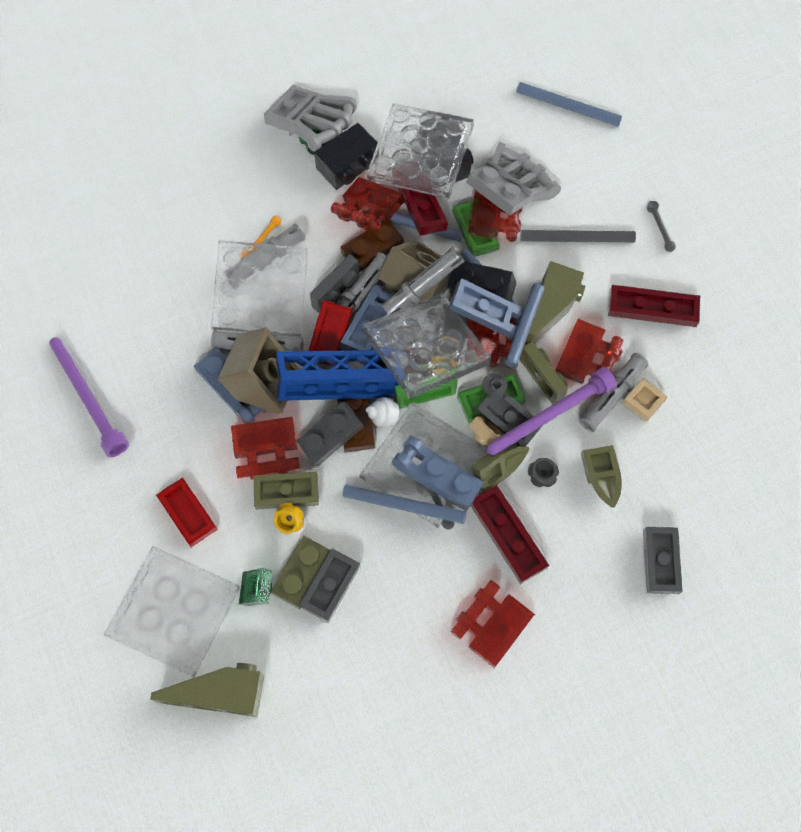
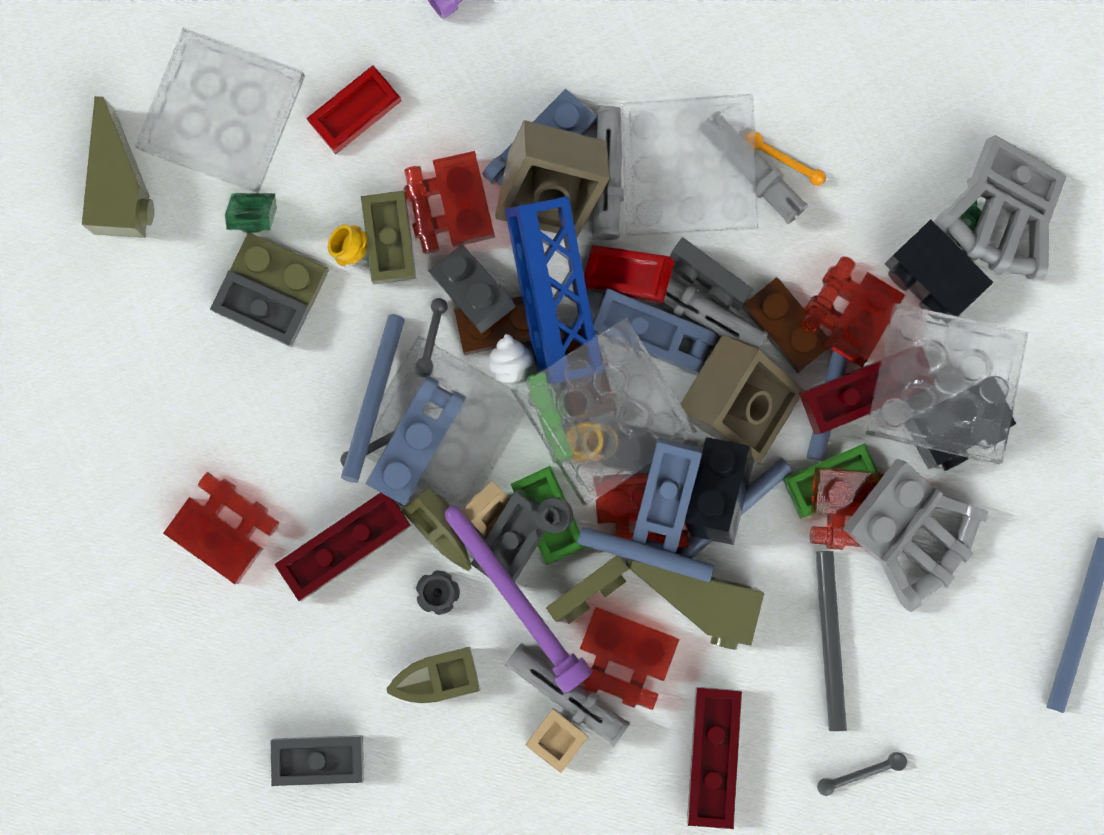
camera: 90 degrees right, 15 degrees up
(385, 464) = (425, 365): none -> dark grey hinge
(428, 278) = (689, 385): light grey pin -> none

